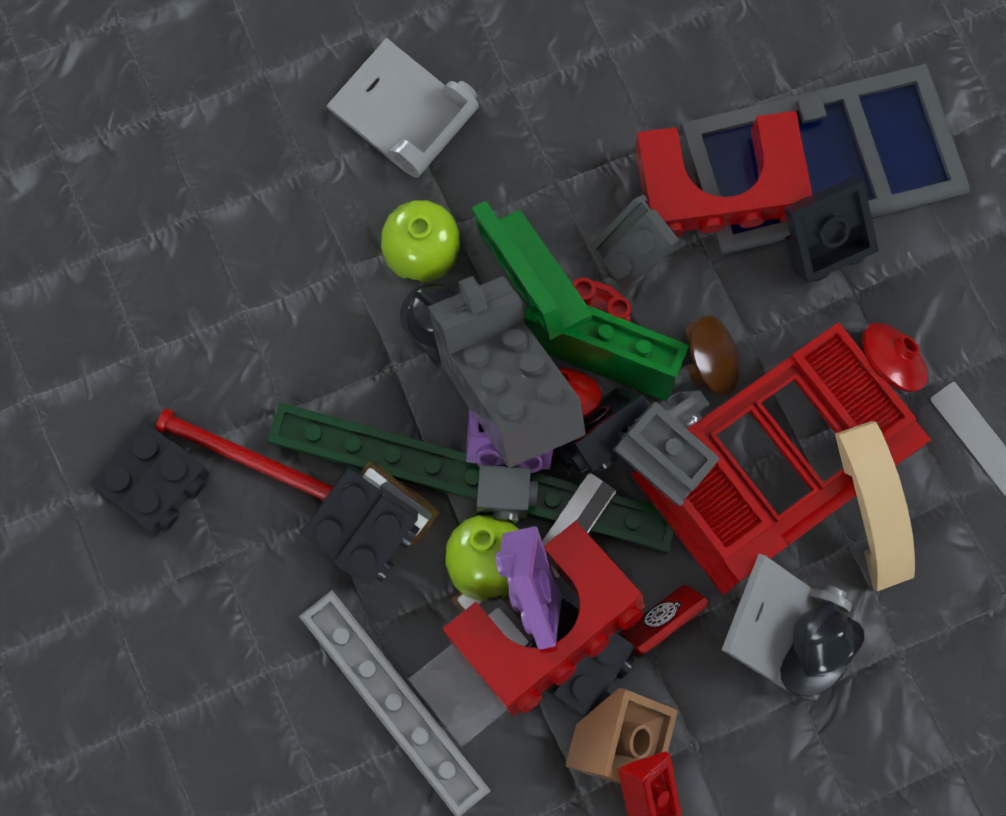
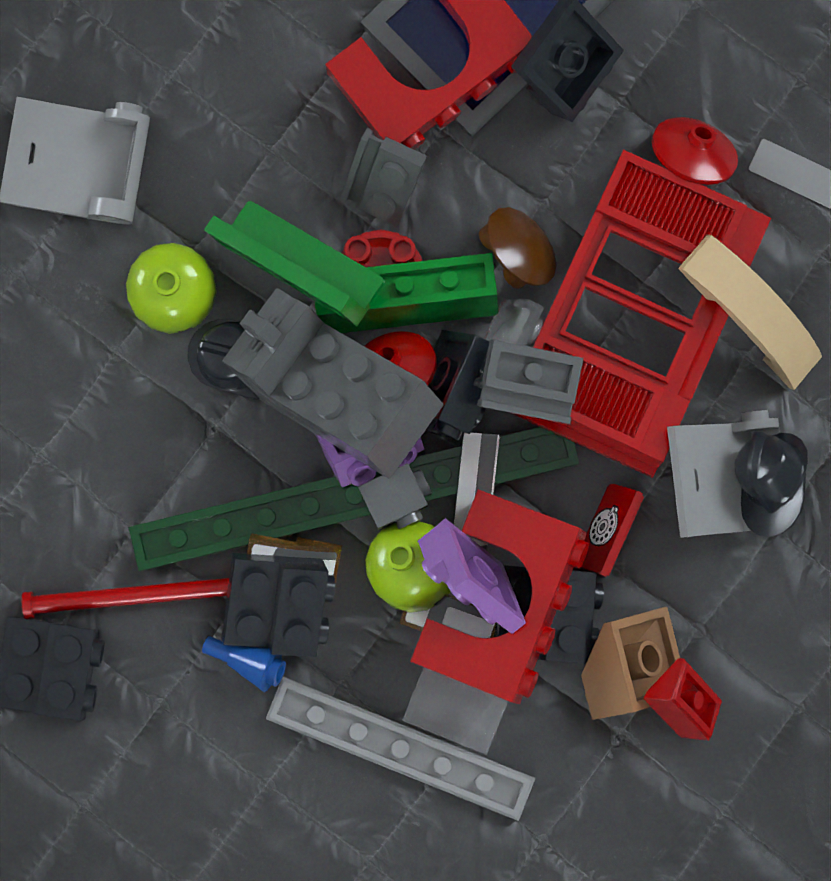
camera: 25 degrees left, 10 degrees up
(315, 565) = (251, 662): none -> blue cone

